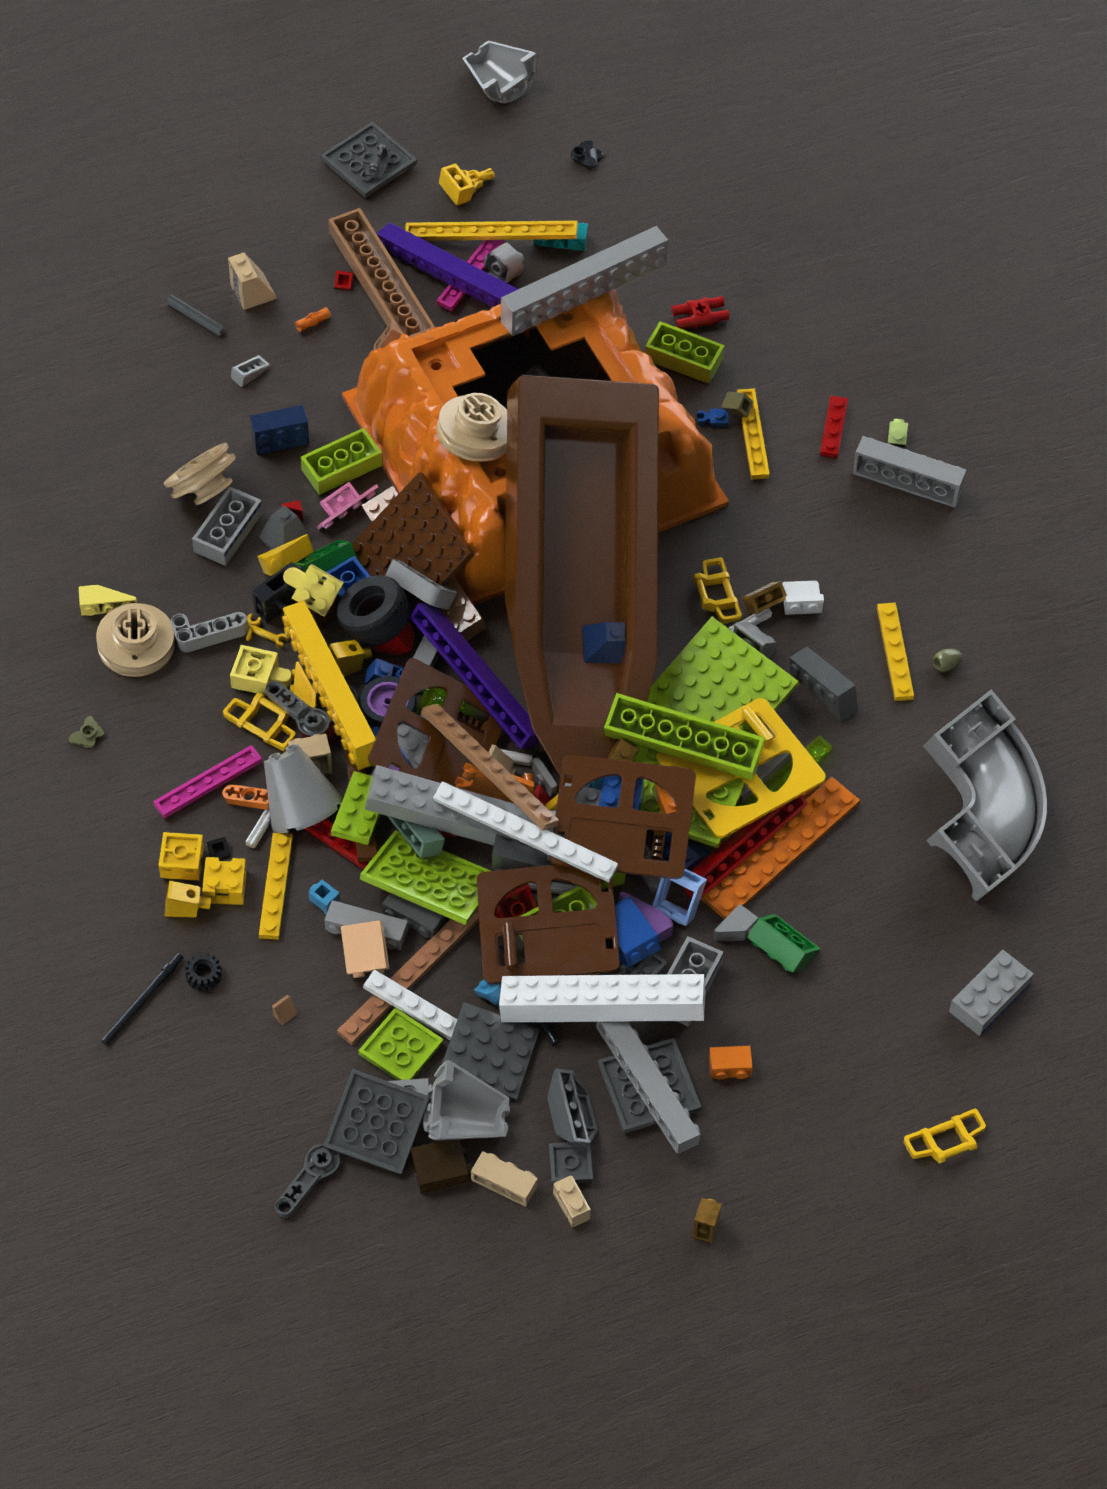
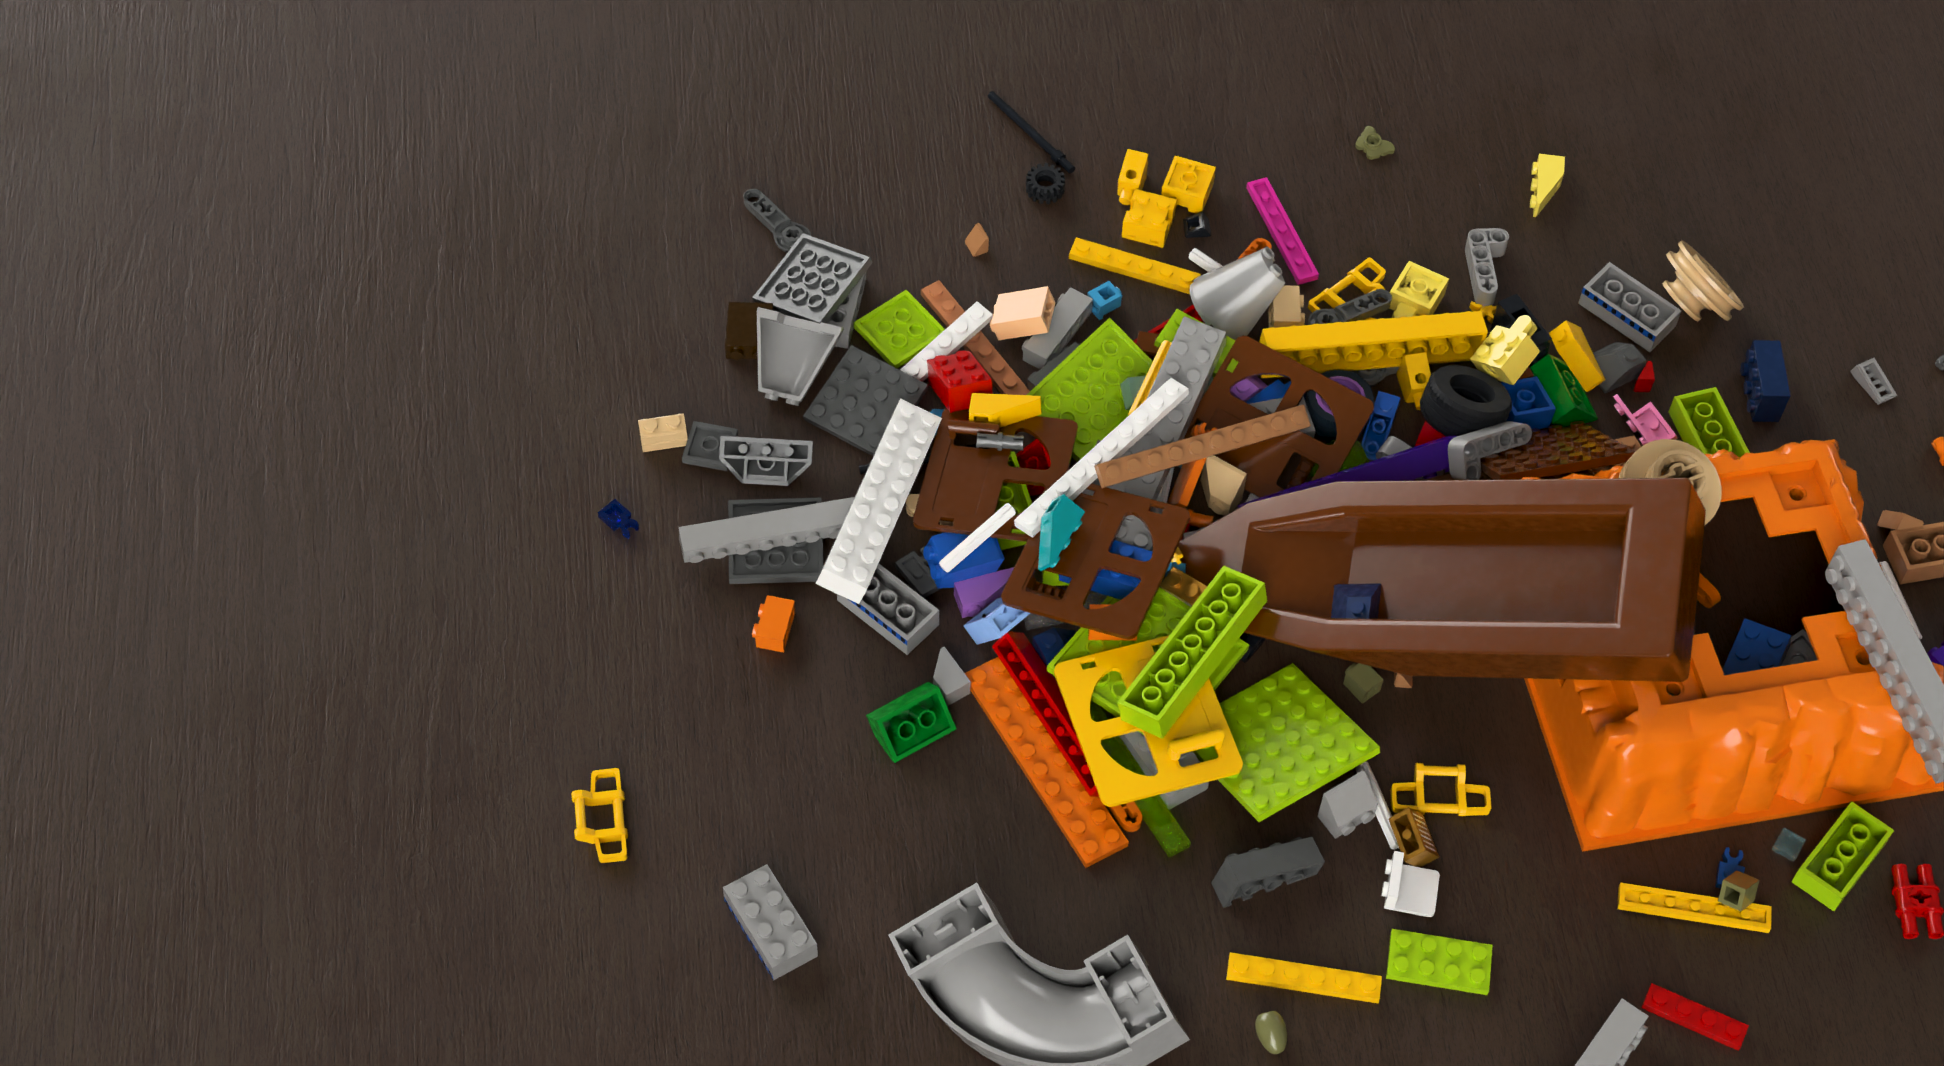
camera: 105 degrees right, 0 degrees up
(139, 655) = (1488, 197): tan wheel -> none
(421, 826) = (1151, 376): none -> yellow axle
(454, 976) = (956, 379): none -> red brick
(489, 937) = (1003, 408): none -> yellow slope
(504, 1178) = (713, 382): tan brick -> none
(519, 921) = (1000, 441): none -> dark grey pin
(616, 842) = (1057, 525): none -> teal slope
(623, 912) = (977, 537): none -> white axle
(667, 1214) = (617, 516): none -> clear blue plate
(682, 387) = (1788, 844): none -> clear light blue tile
(707, 1220) = (588, 541): pearl gold brick -> none
(850, 574) = (1439, 961): none -> lime plate

